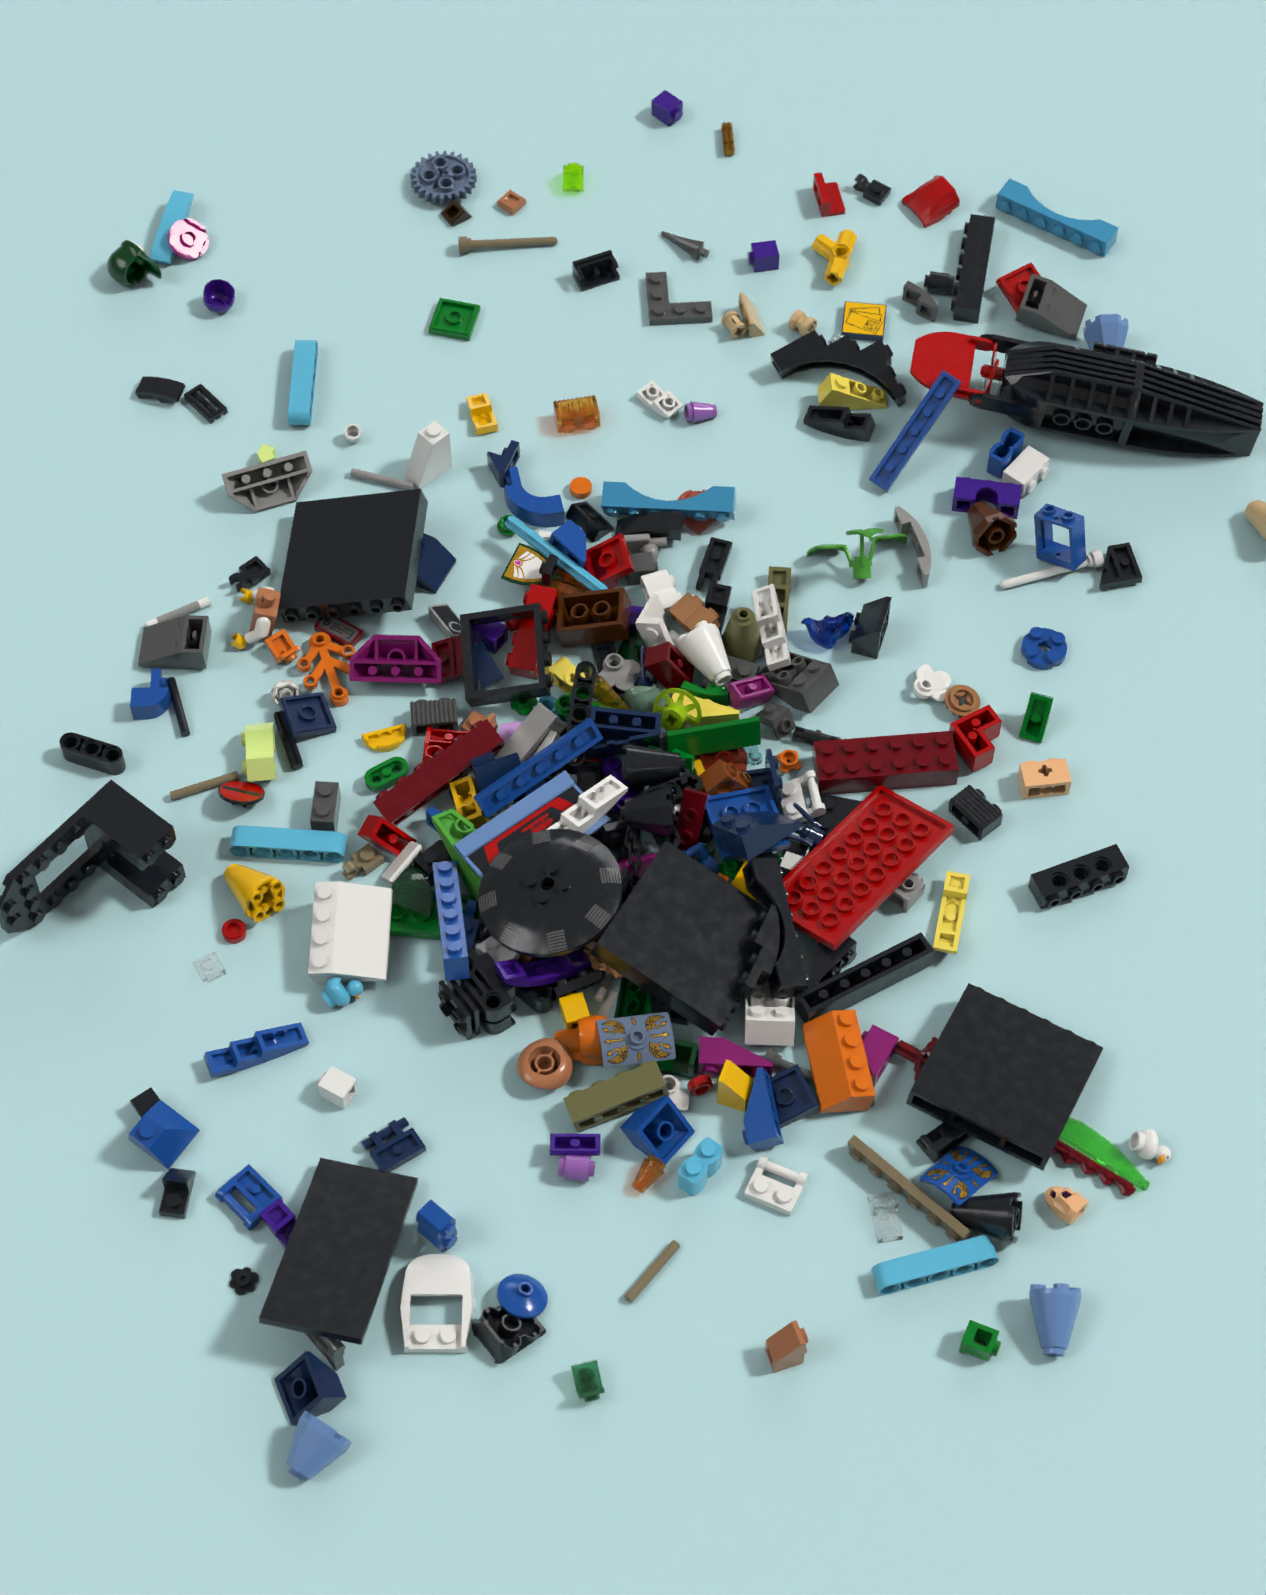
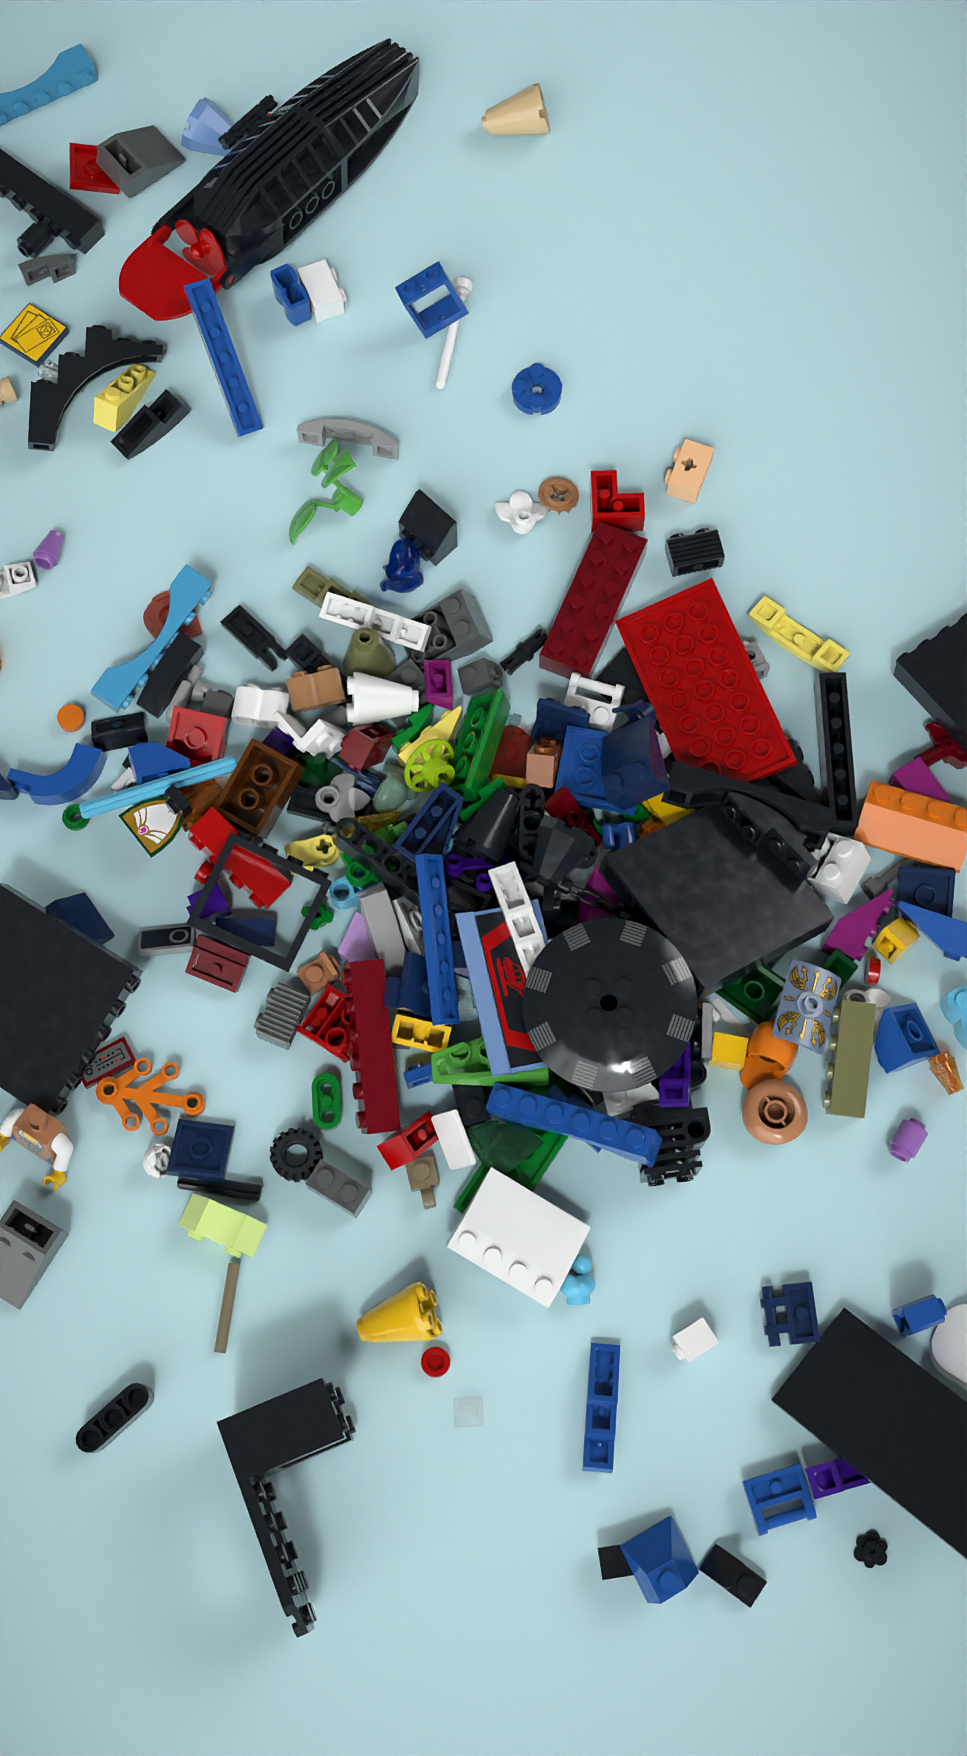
camera: 60 degrees left, 15 degrees up
(153, 700) = (82, 1316): blue brick -> none
(178, 707) = (102, 1289): black bar -> none
(241, 792) = (265, 1272): red piece -> none
(282, 647) = (95, 1135): orange bracket -> none
(288, 844) = (358, 1251): medium azure beam -> none
(338, 762) = (286, 1140): none -> black tyre
(385, 739) = (278, 1080): yellow tile -> none
(395, 660) = (196, 1021): magenta wedge -> none
(575, 1144) = (884, 1128): dark purple slope -> none
(788, 755) = (532, 685): orange plate -> none
(990, 528) = (369, 358): reddish brown cone -> none
(1002, 495) = (340, 326): dark purple arch -> none
(1036, 717) = (618, 439): green slope -> none
(1107, 859) = (811, 538): black brick -> none
(1120, 567) = (485, 272): black wing -> none

